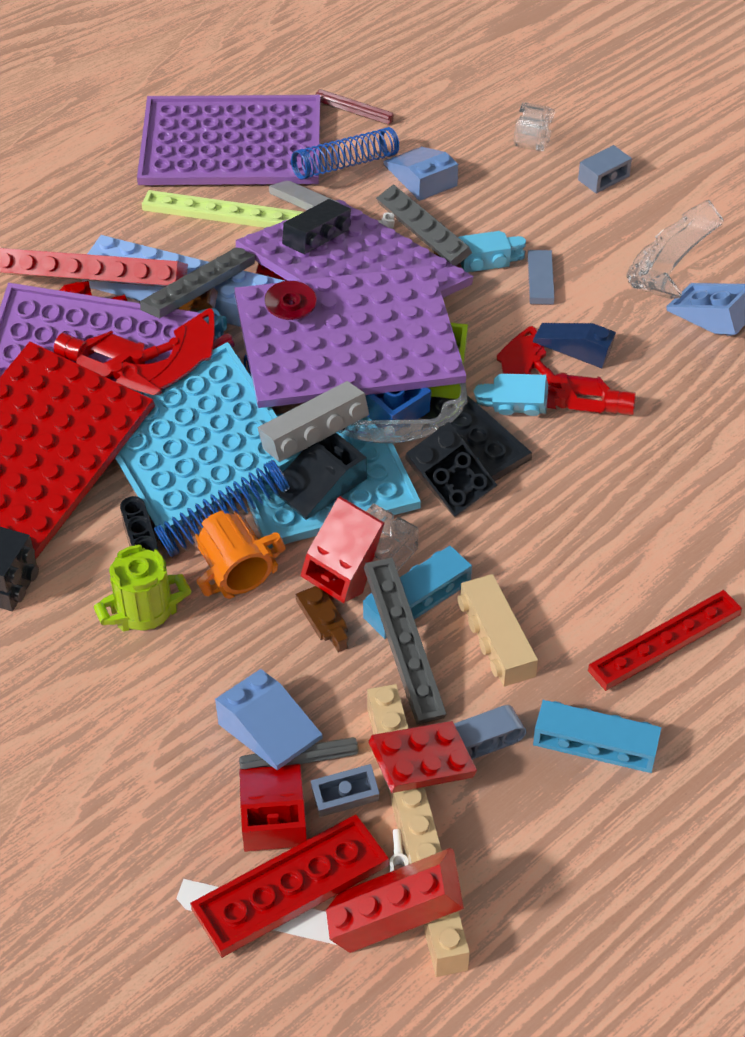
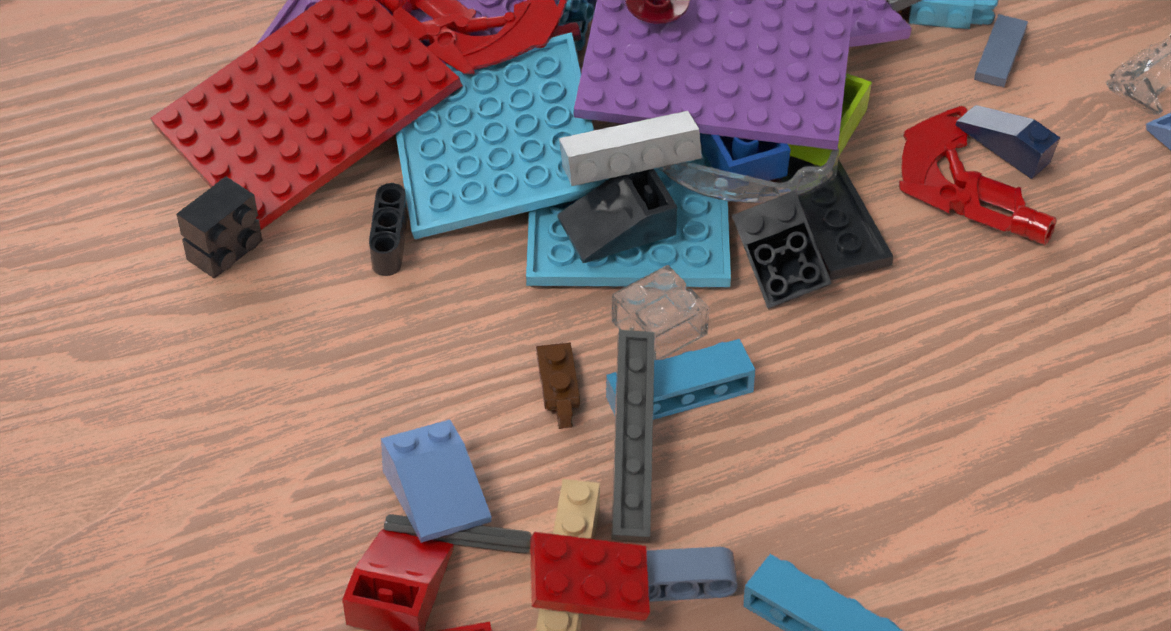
camera: 20 degrees right, 0 degrees up
(140, 591) = (356, 292): lime container -> none
(235, 555) = (481, 281): orange container -> none
(276, 474) = (413, 243): blue piece -> none
(342, 550) = (602, 303): slope -> none
(345, 790) = (487, 589): sand blue brick -> none
(497, 630) = (757, 456): tan brick -> none
(515, 394) = (902, 181): medium azure hinge -> none
(664, 640) = (962, 527): red plate -> none

